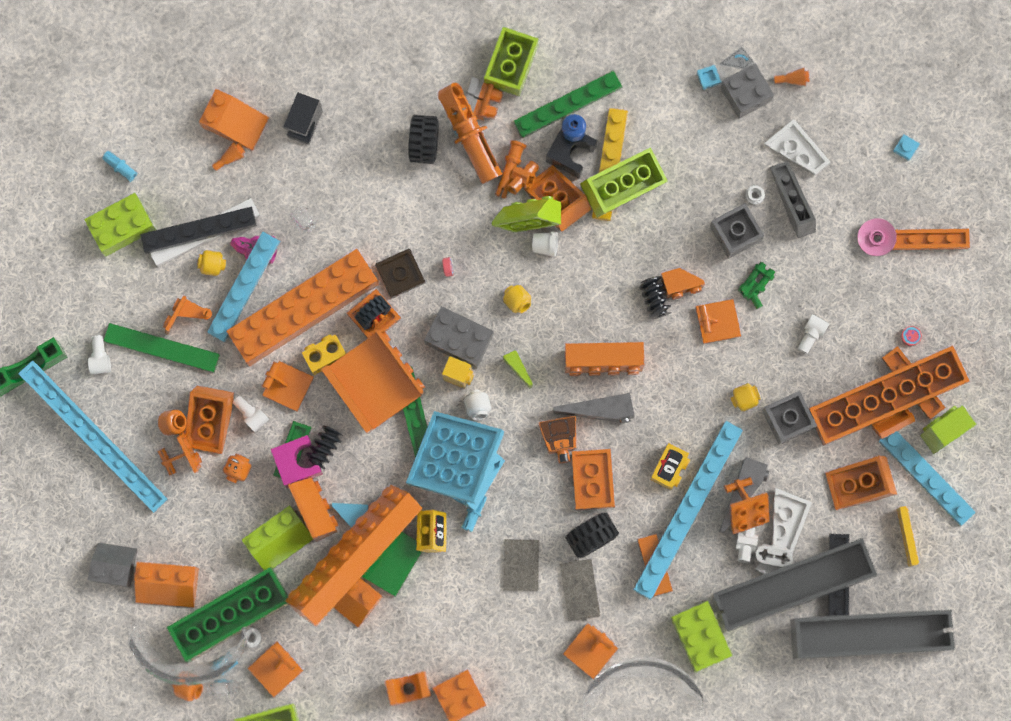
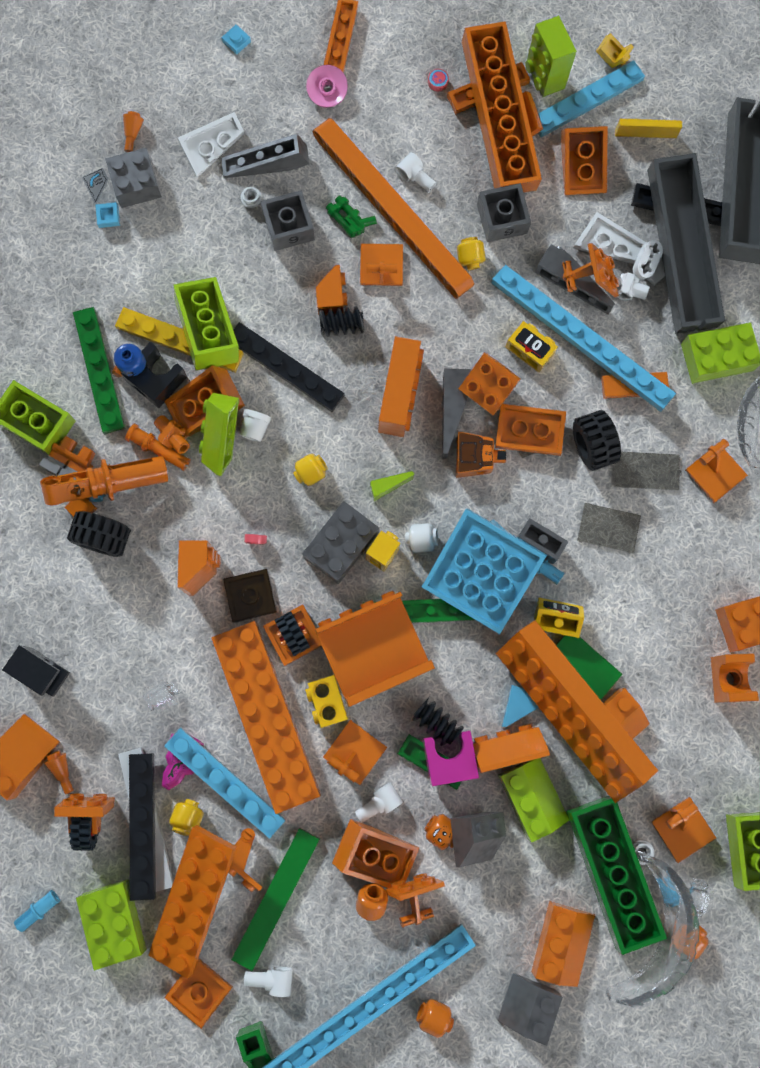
camera: 85 degrees left, 0 degrees up
(80, 303) = (199, 993): none -> orange tile
(92, 490) = (435, 1018): none -> orange head
(148, 281) = (192, 901): none -> orange plate
(196, 184) = (84, 818): none -> orange plate
(237, 496) = (477, 837): none -> flat silver slope
(411, 222) = (196, 565): none -> orange slope
(444, 121) = (80, 505): none -> orange tile
(494, 505) = (543, 540): none -> flat silver brick
(605, 259) = (287, 368): none -> black plate
(622, 432) = (489, 383): none -> orange plate
(773, 320) = (393, 208): none -> orange beam
(979, 491) = (613, 52): none -> yellow bracket

